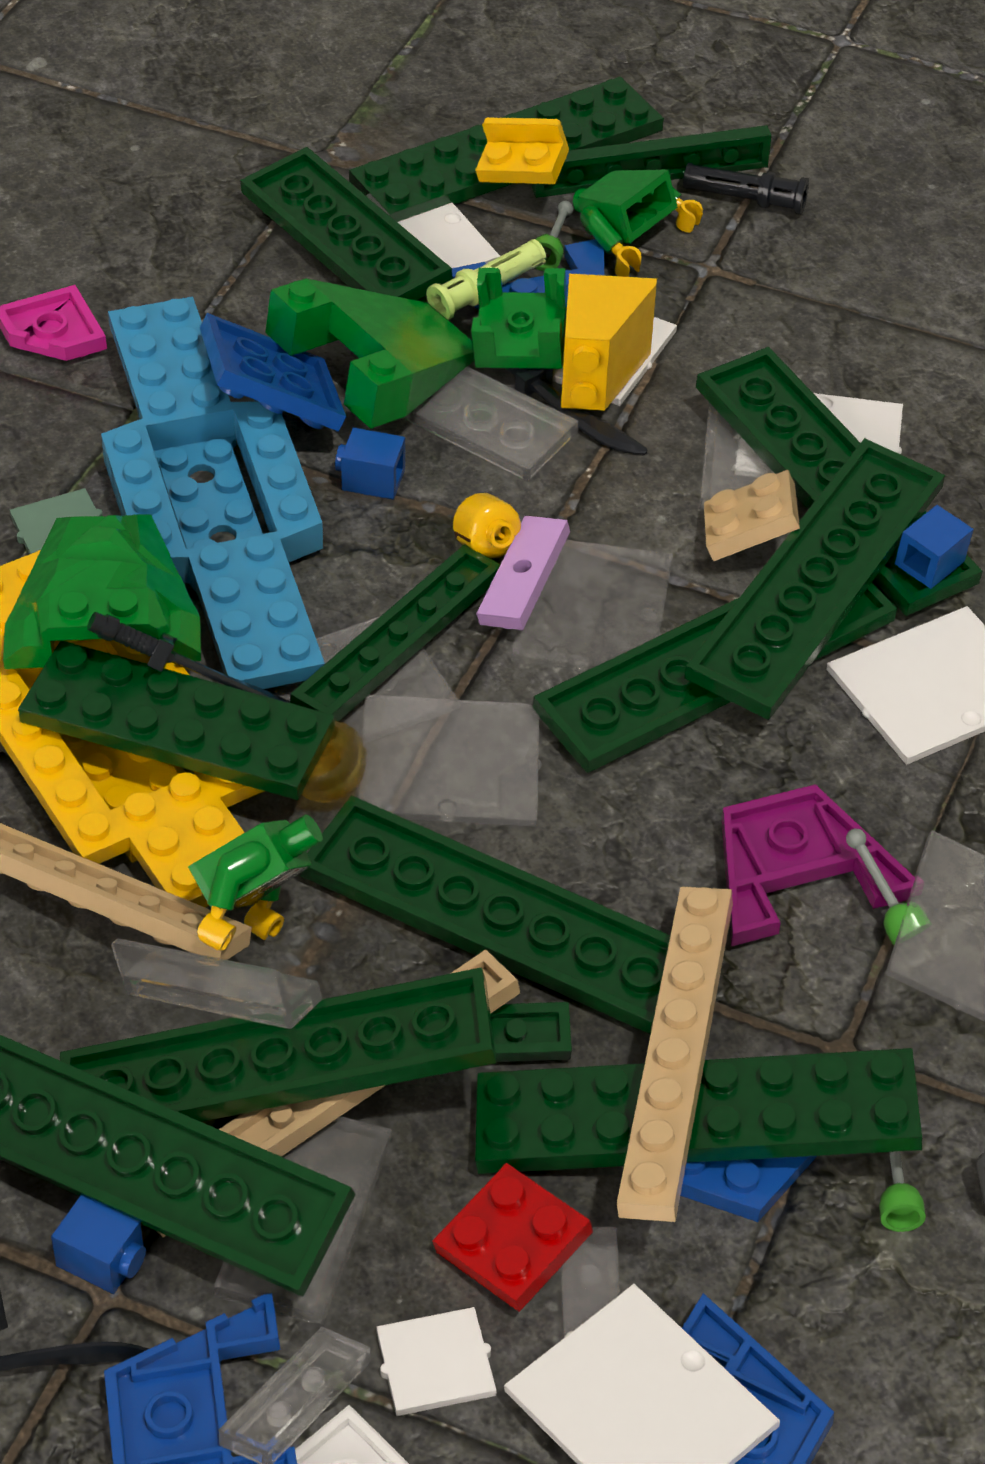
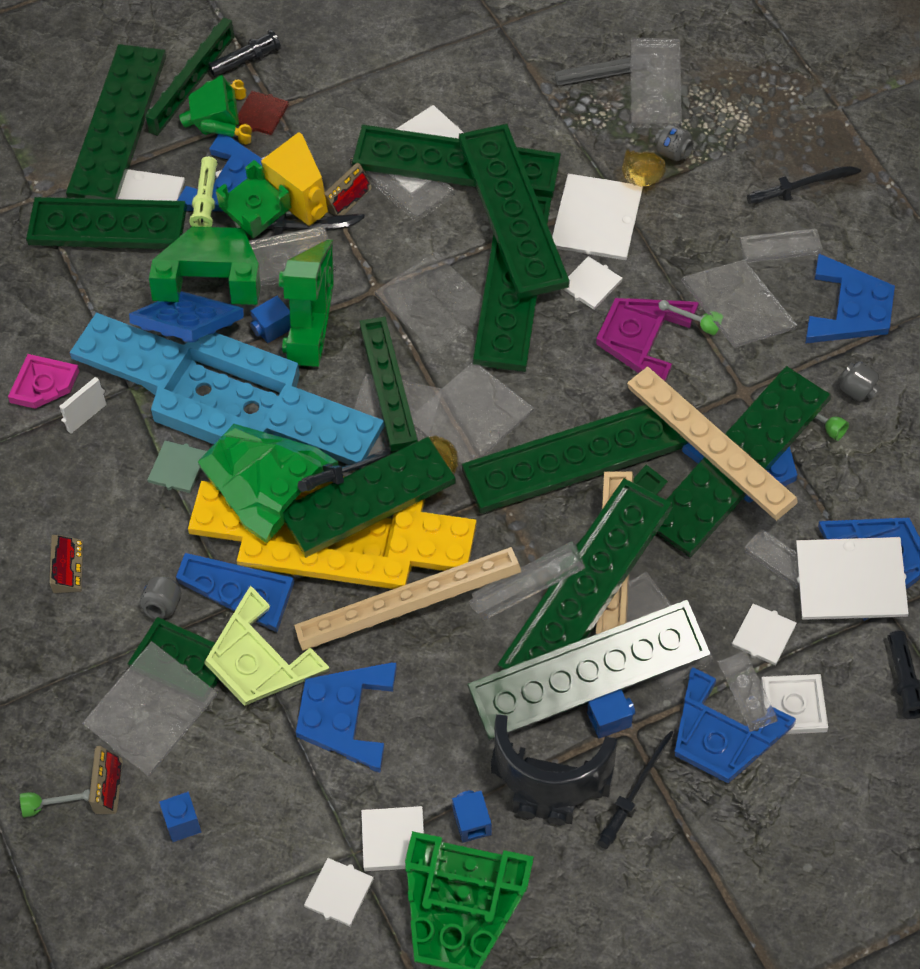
camera: 45 degrees left, 10 degrees up
(45, 374) = (83, 405): none -> white piece
(252, 872) = (493, 523): green torso -> none
(434, 455) = (309, 287): none -> green wedge
(486, 524) = (358, 304): yellow head -> none
(512, 1237) = (736, 566): red plate -> none
(522, 151) = (143, 118): yellow bracket -> none
(523, 573) = (392, 301): lavender tile -> none
(552, 244) = (204, 152): hinge -> none
(657, 406) = (347, 191): none -> slope
(684, 260) = (262, 112): none -> clear red piece
(750, 514) = (453, 206): tan plate -> none
(819, 749) = (592, 282): none -> white piece
(933, 546) = (539, 158): blue brick -> none

